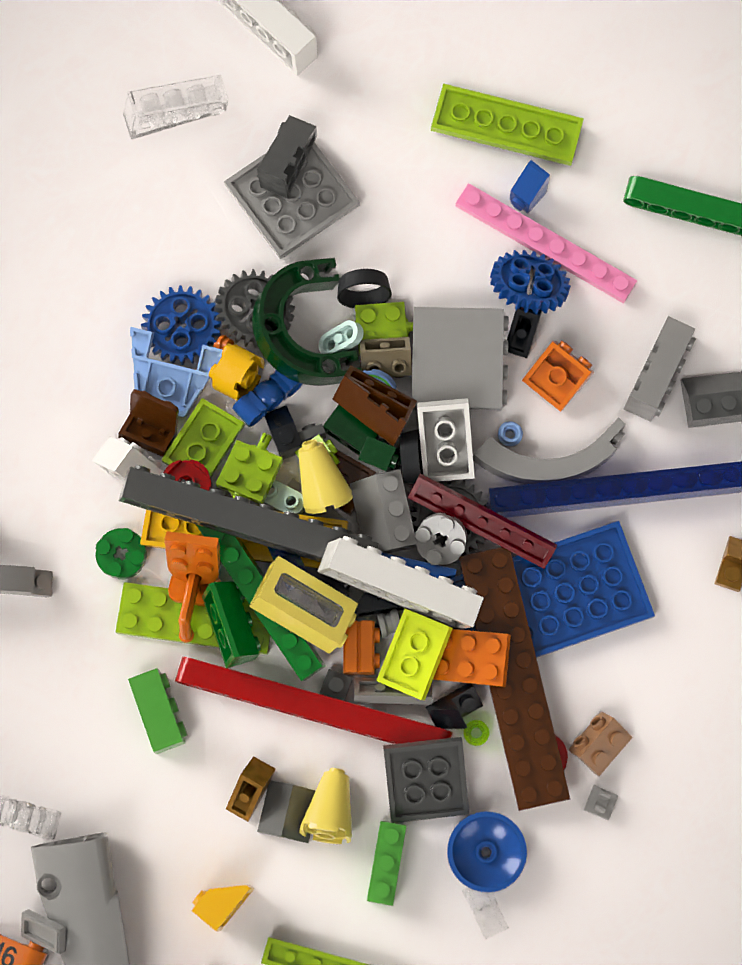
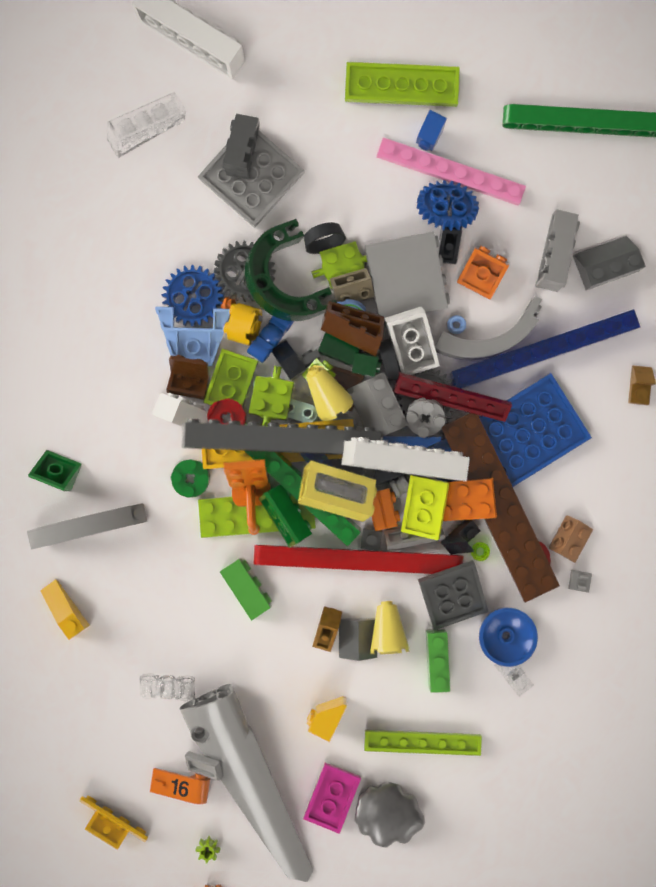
camera: 15 degrees left, 10 degrees up
(343, 336) = (315, 278): light aqua plate -> none

